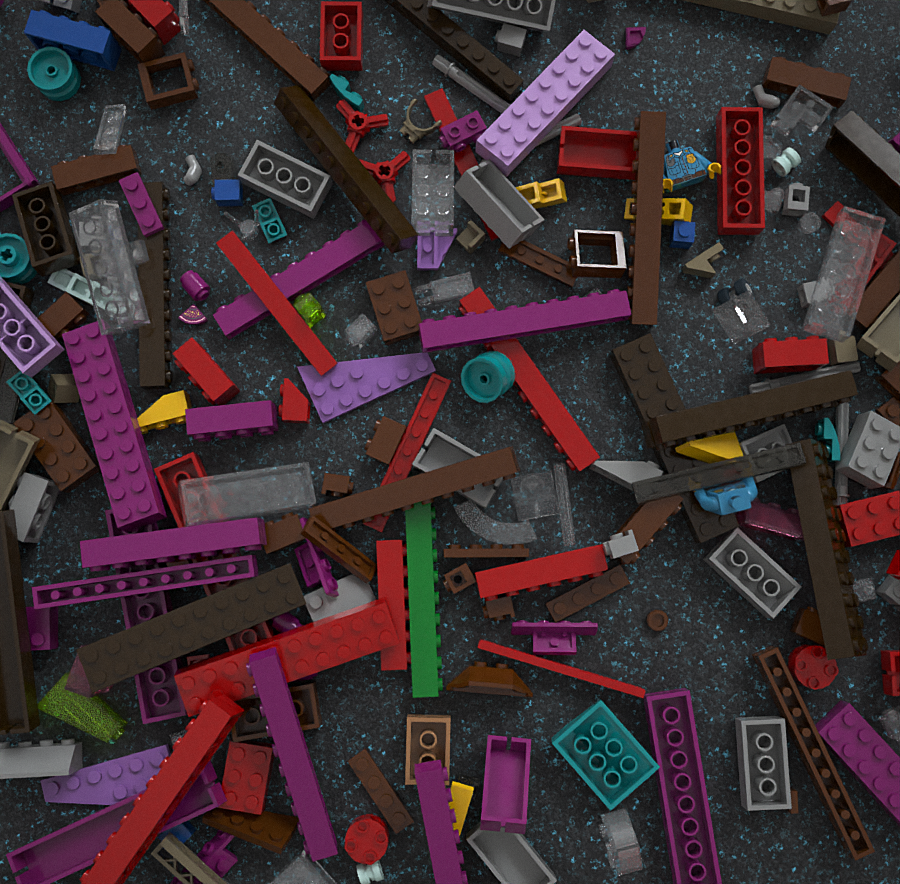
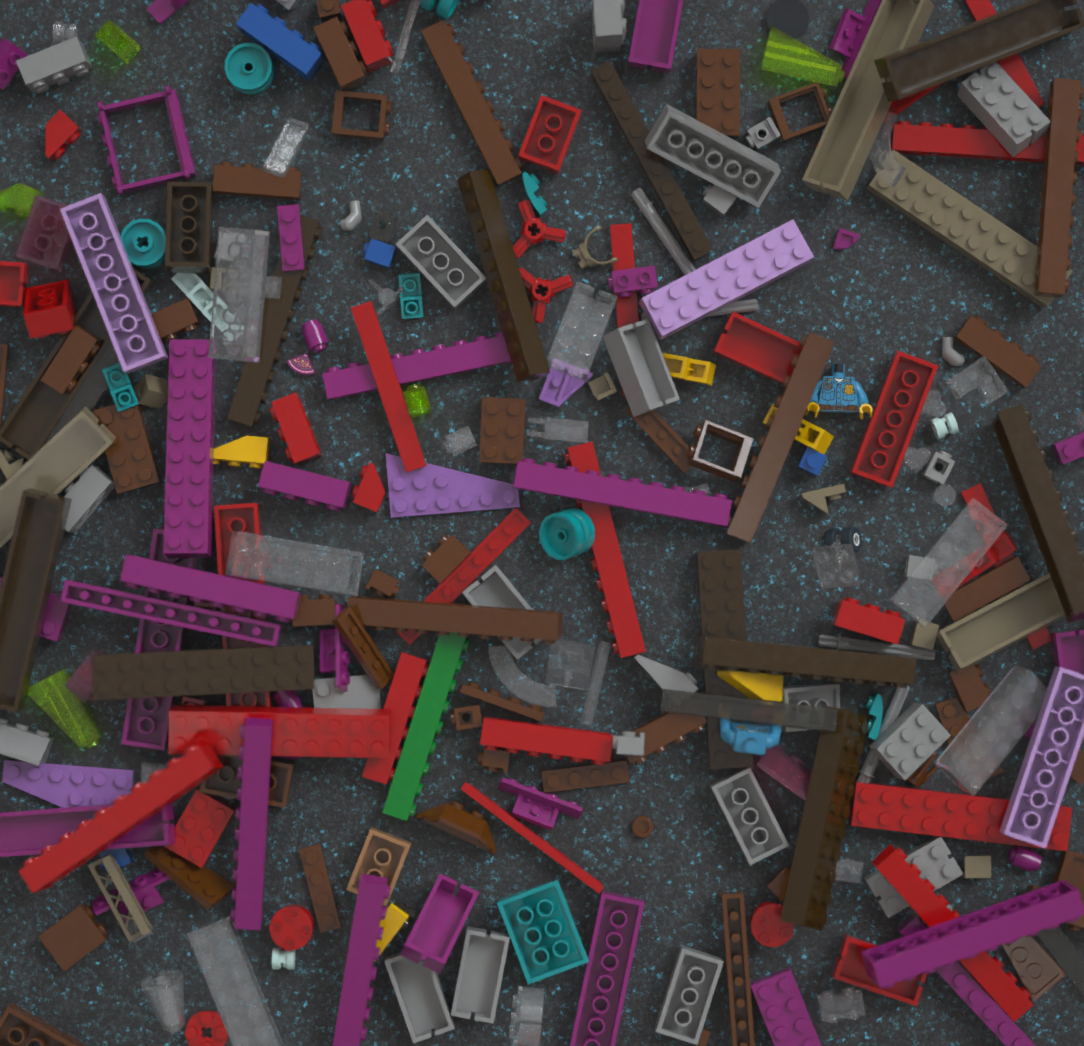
camera: 20 degrees right, 5 degrees up
(561, 818) = (480, 974): none -> light grey piece

